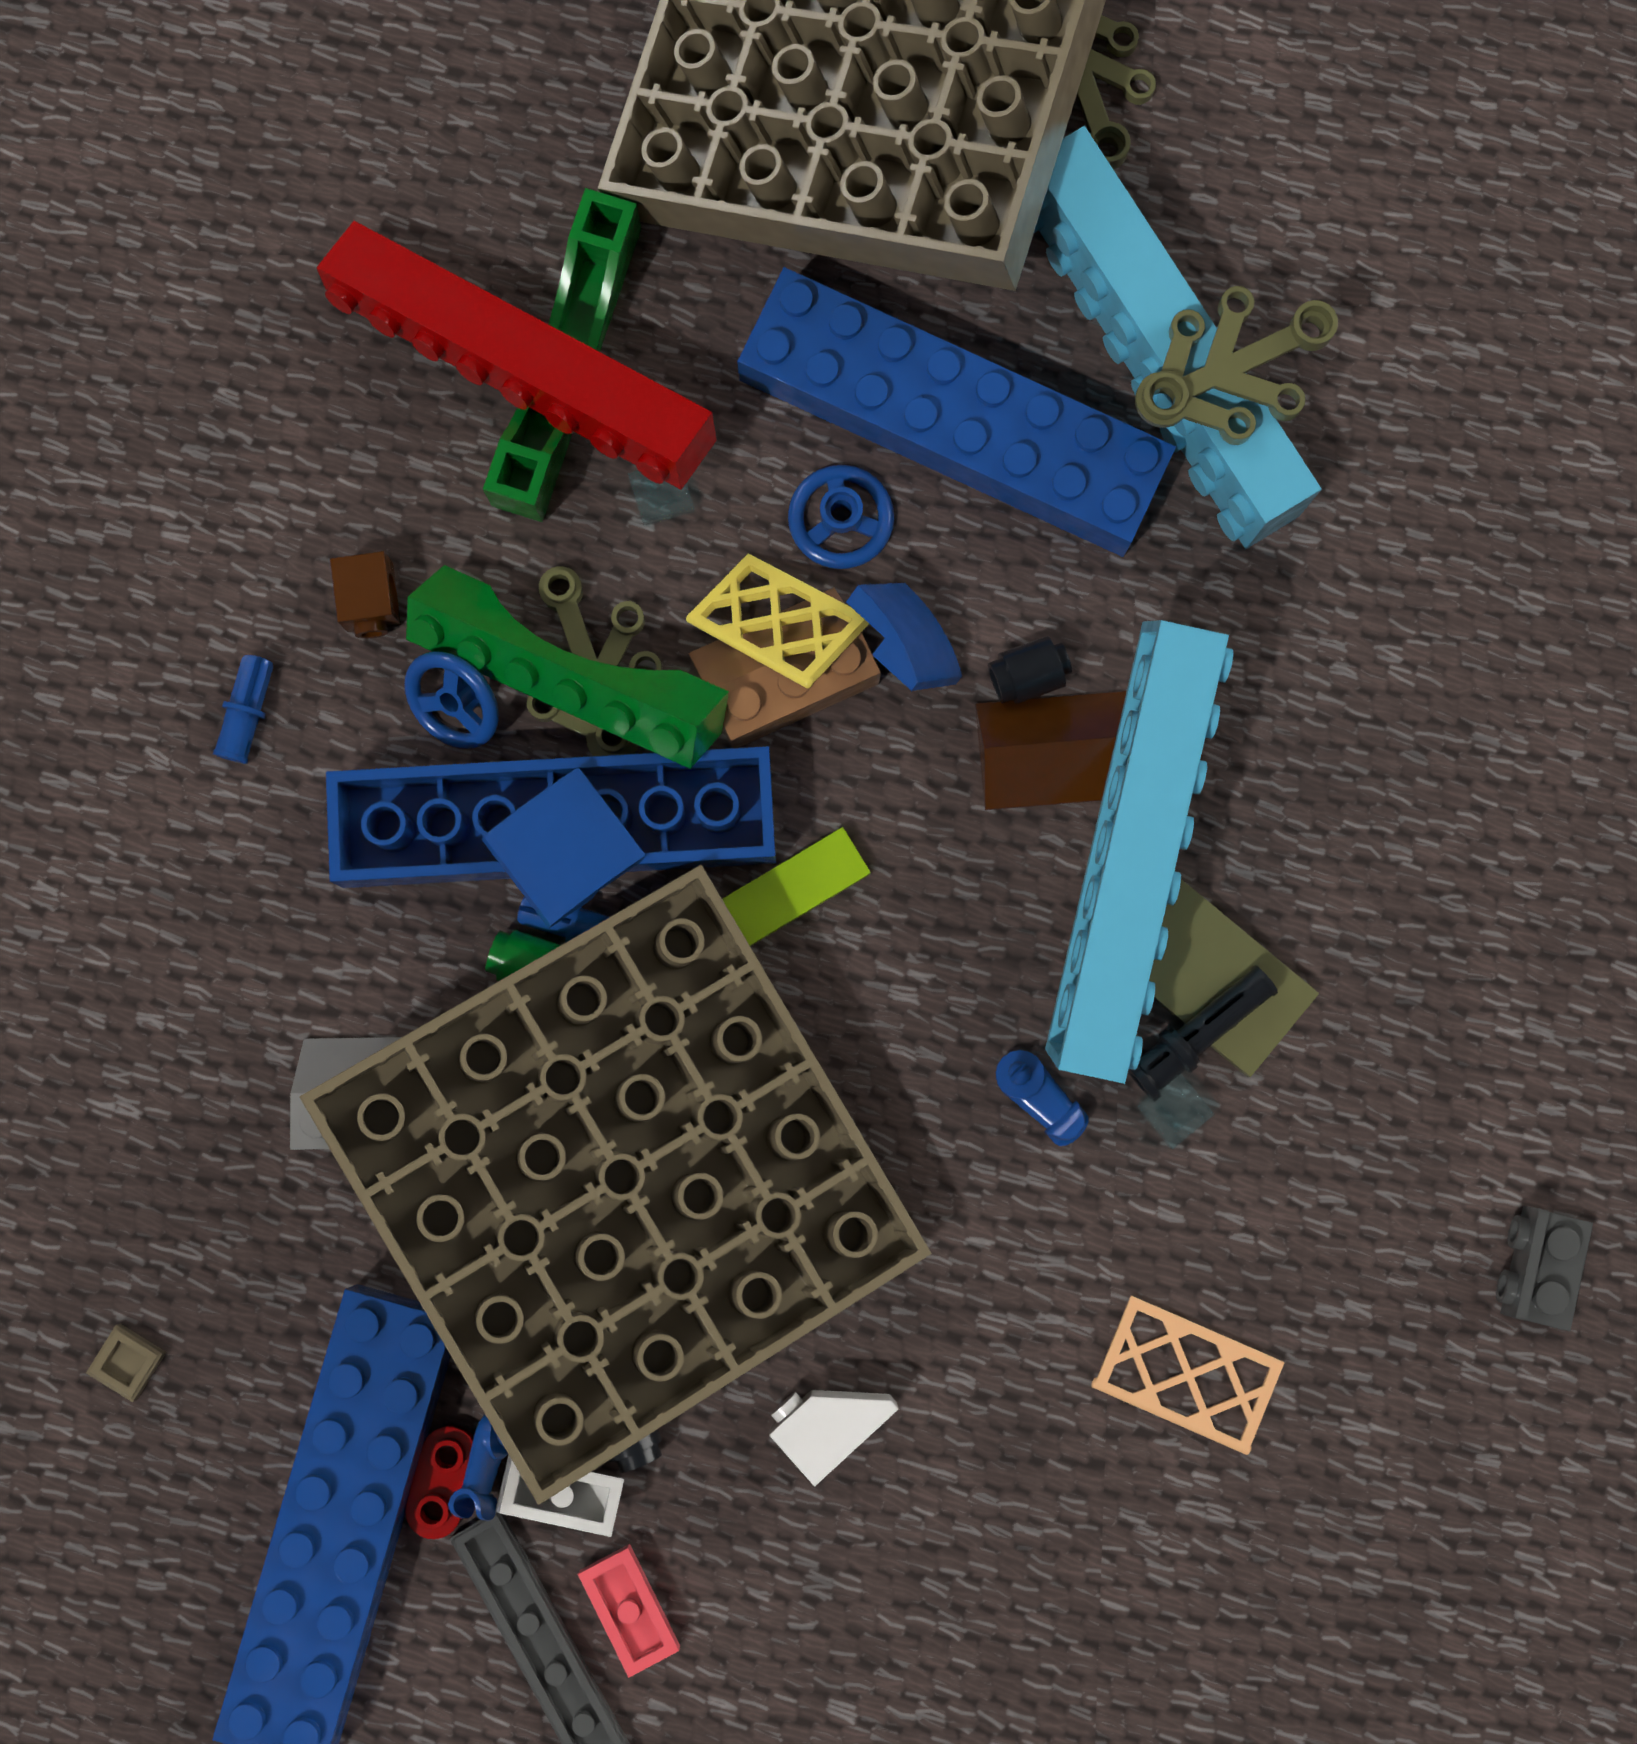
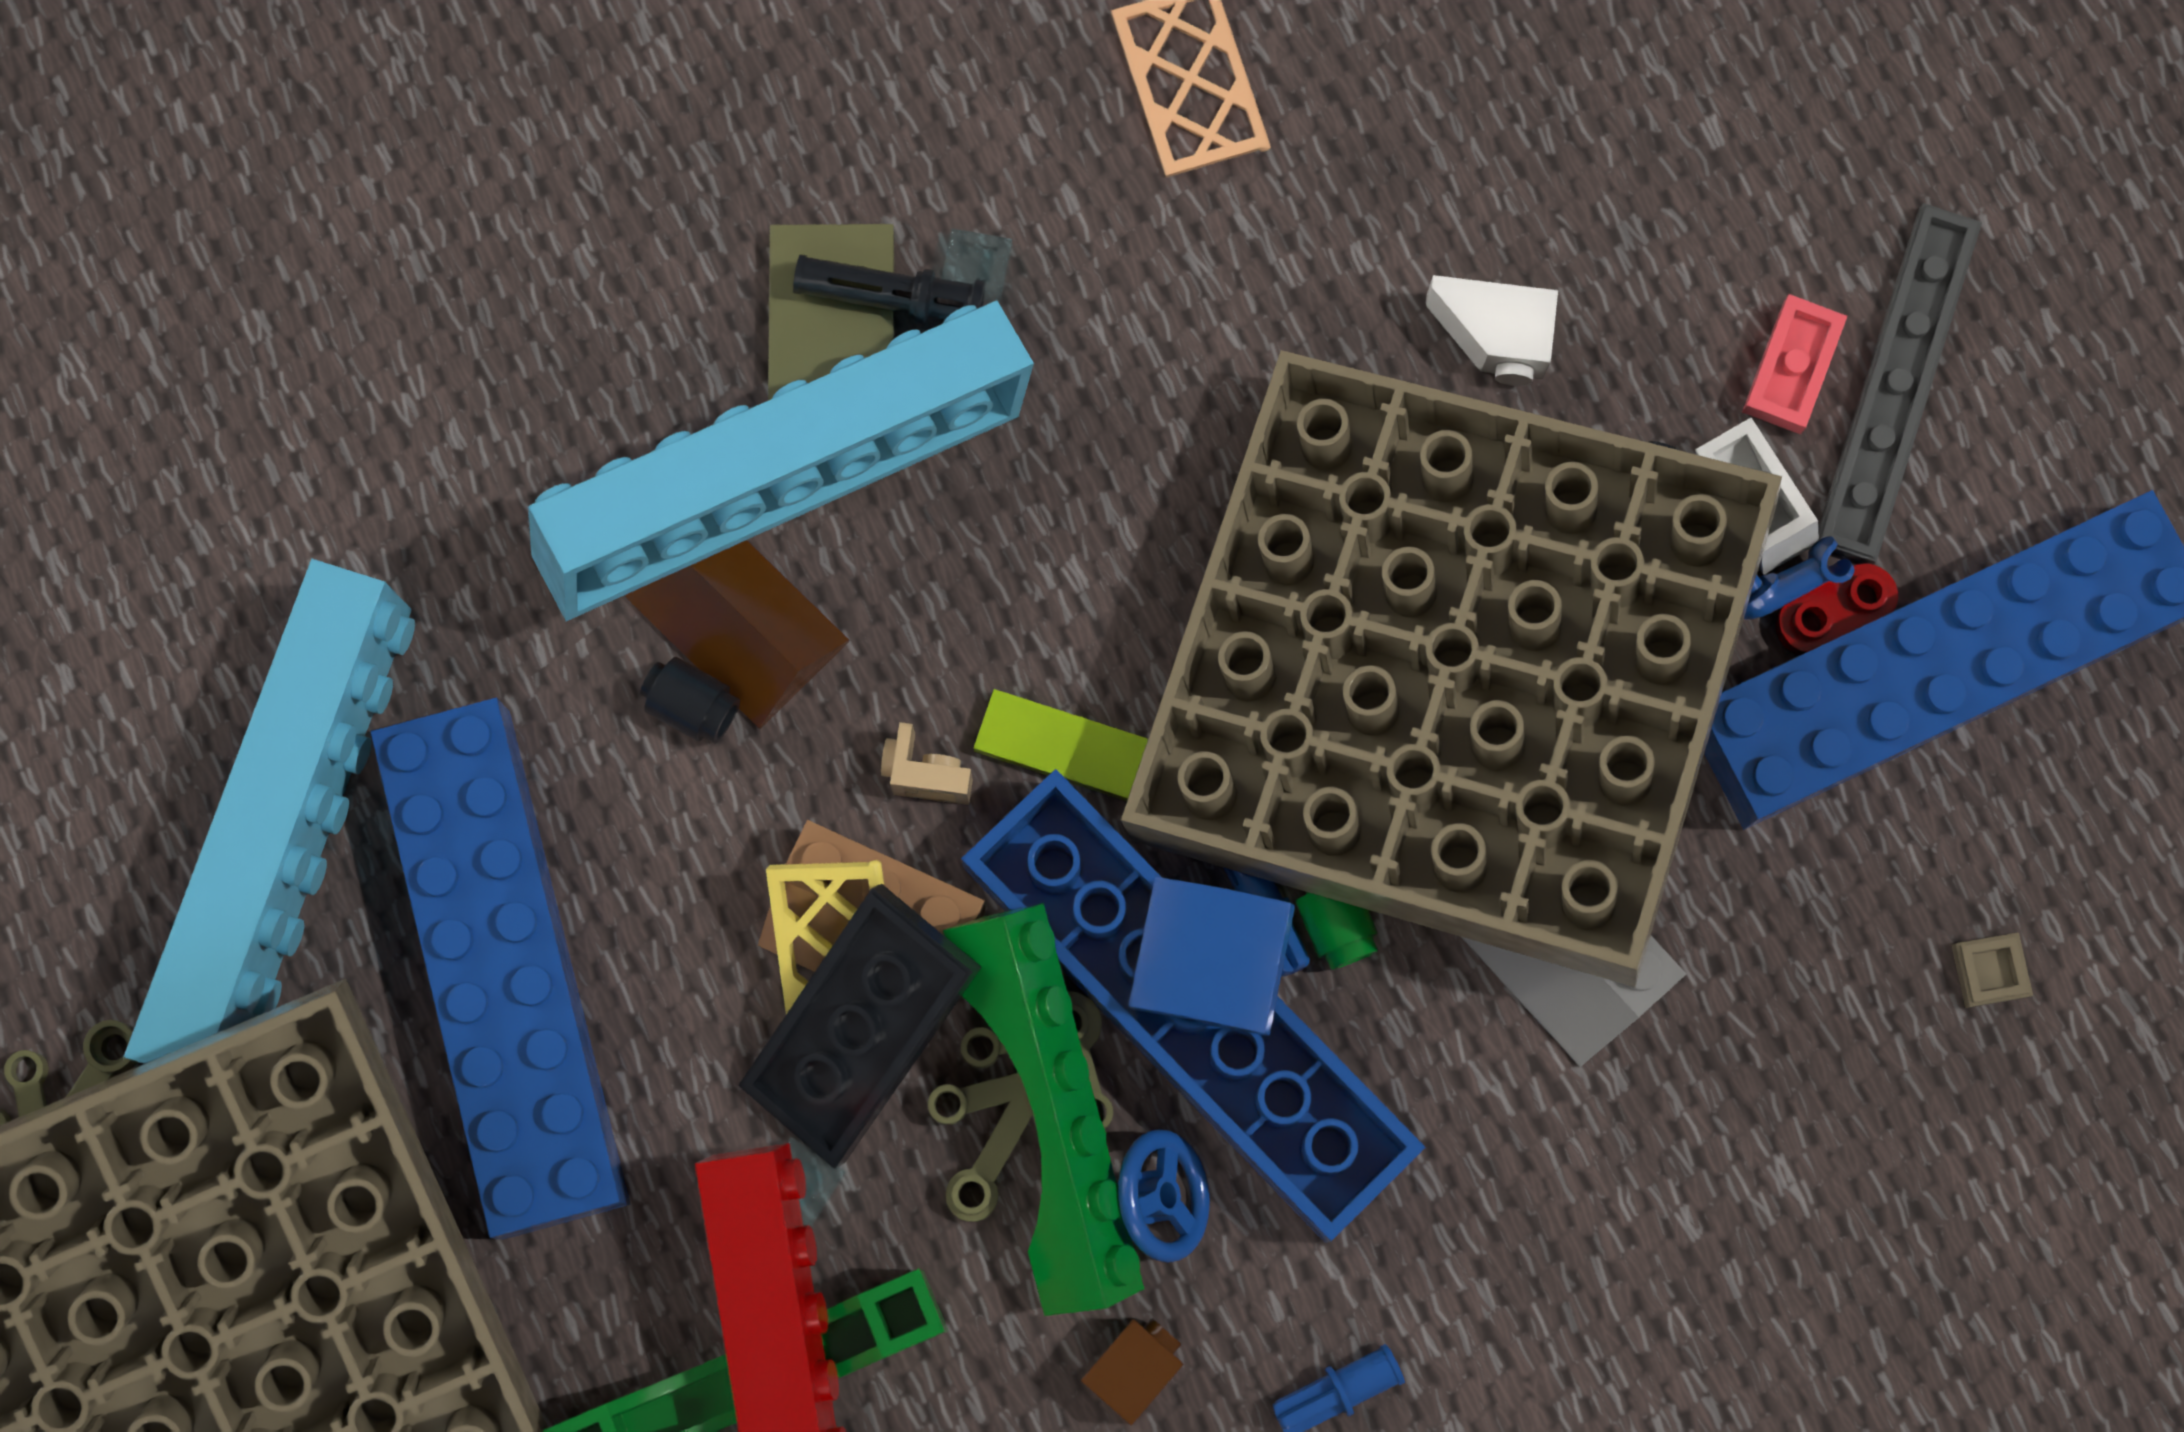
camera: 130 degrees left, 5 degrees down
(719, 597) = (859, 1025): none -> black tile
(841, 497) = (669, 949): blue piece -> none
(843, 783) = (932, 779): none -> tan bracket
(913, 641) = (742, 832): blue slope -> none
(1037, 1093) = (1062, 392): blue piece -> none
(1228, 370) = (265, 728): olive plant -> none

